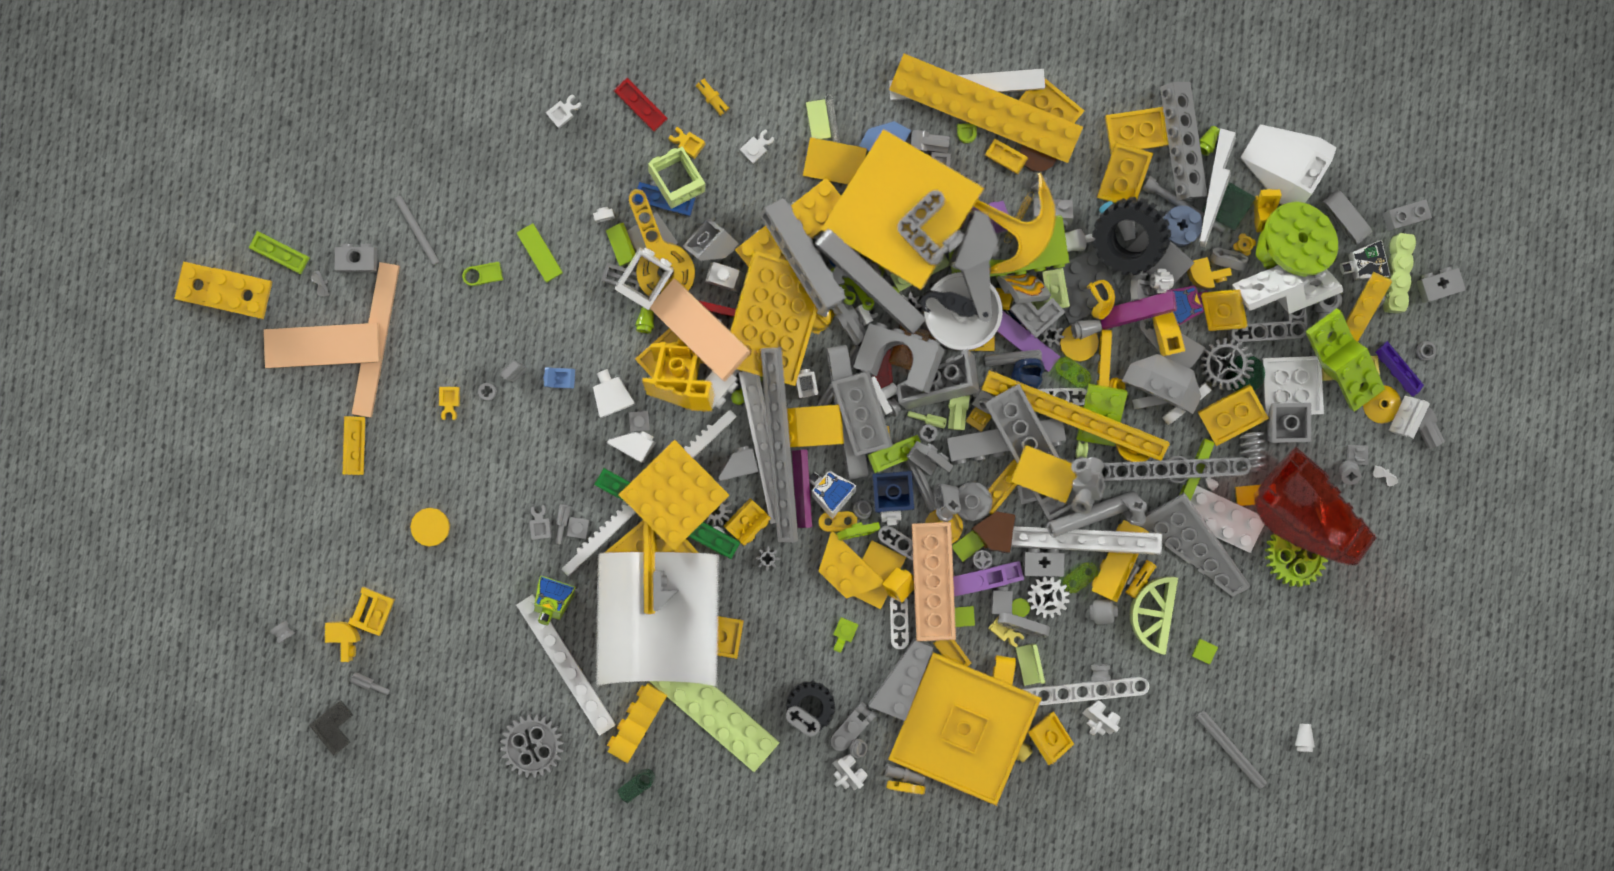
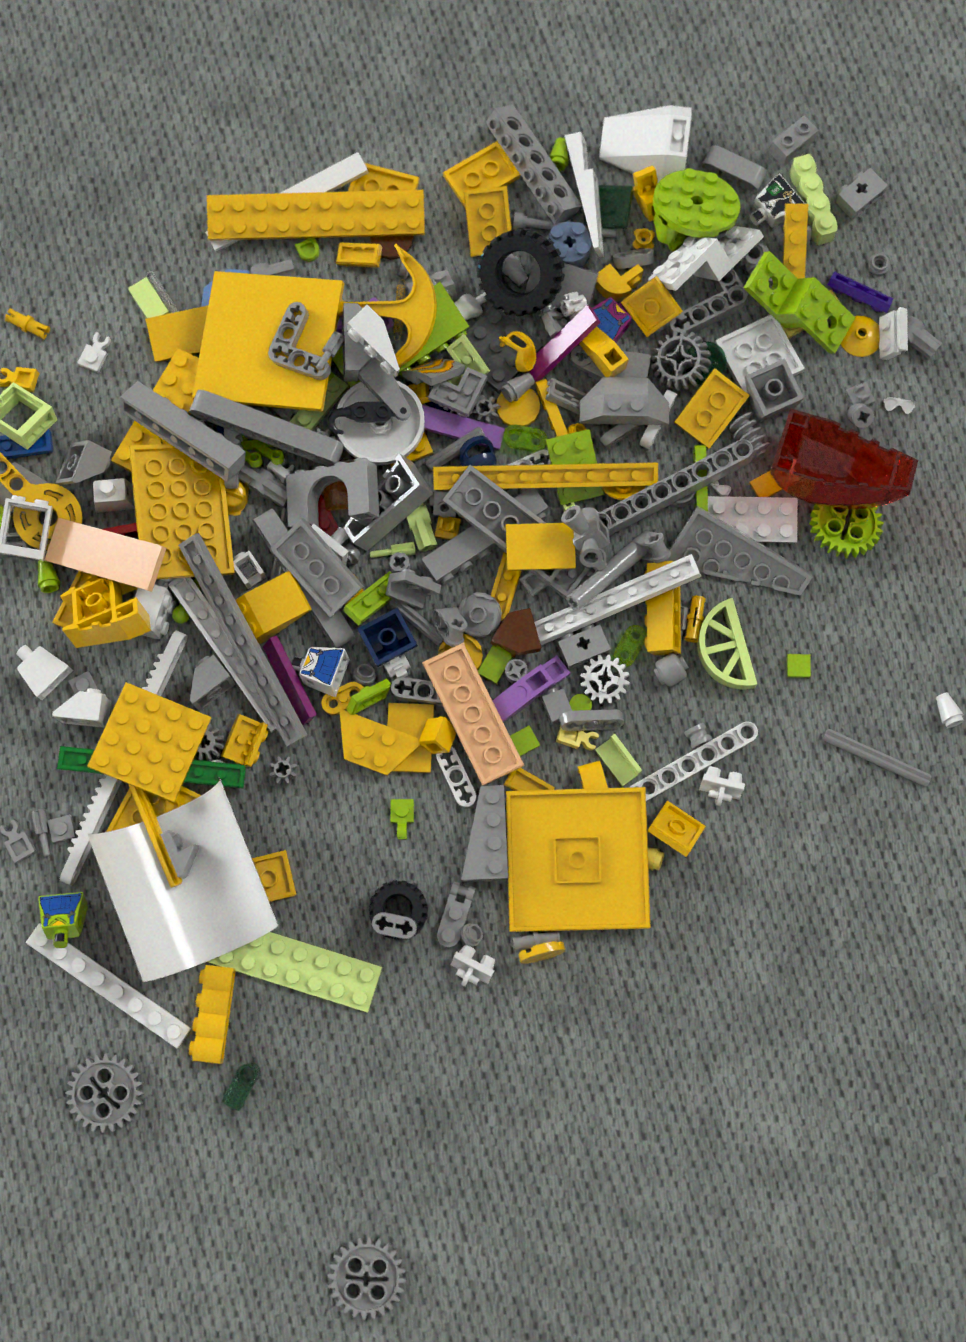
camera: 20 degrees left, 10 degrees down
(989, 250) = (372, 333): none -> white slope
(1118, 355) = (564, 400): none -> light grey tile

